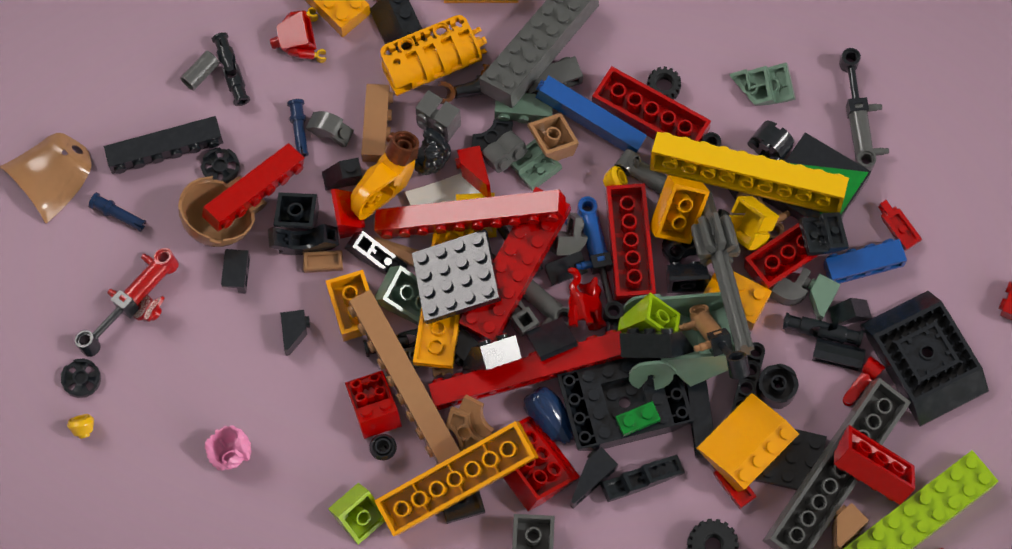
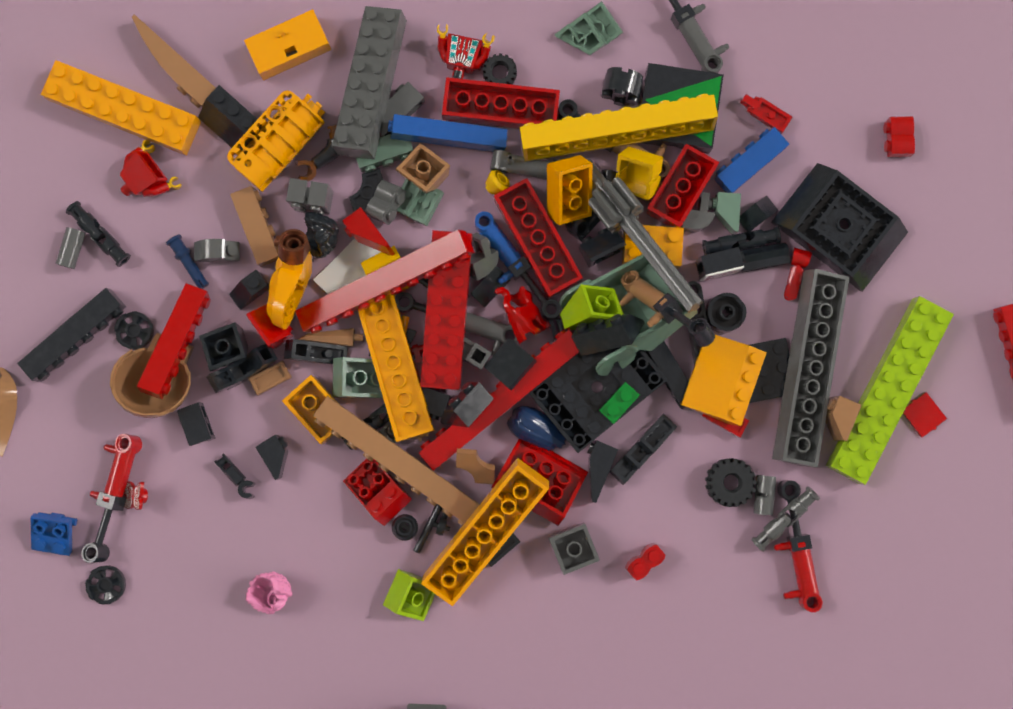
camera: 25 degrees left, 15 degrees up
(57, 309) = (52, 533): none -> blue plate
(81, 425) = (127, 629): yellow cone -> none
(109, 208) = (52, 417): dark blue pin -> none
(249, 335) = (235, 476): none -> black piece
(403, 461) = (427, 529): none -> black bar
(418, 462) = (441, 526): none -> black piece
(456, 276) = (398, 346): plate -> none
(460, 424) = (463, 475): medium nougat tile -> none
(636, 53) = (462, 53): none -> torso
(792, 338) = (720, 264): none -> black piece
(823, 234) = (708, 155): black slope -> none
(875, 465) = (844, 351): red slope -> none

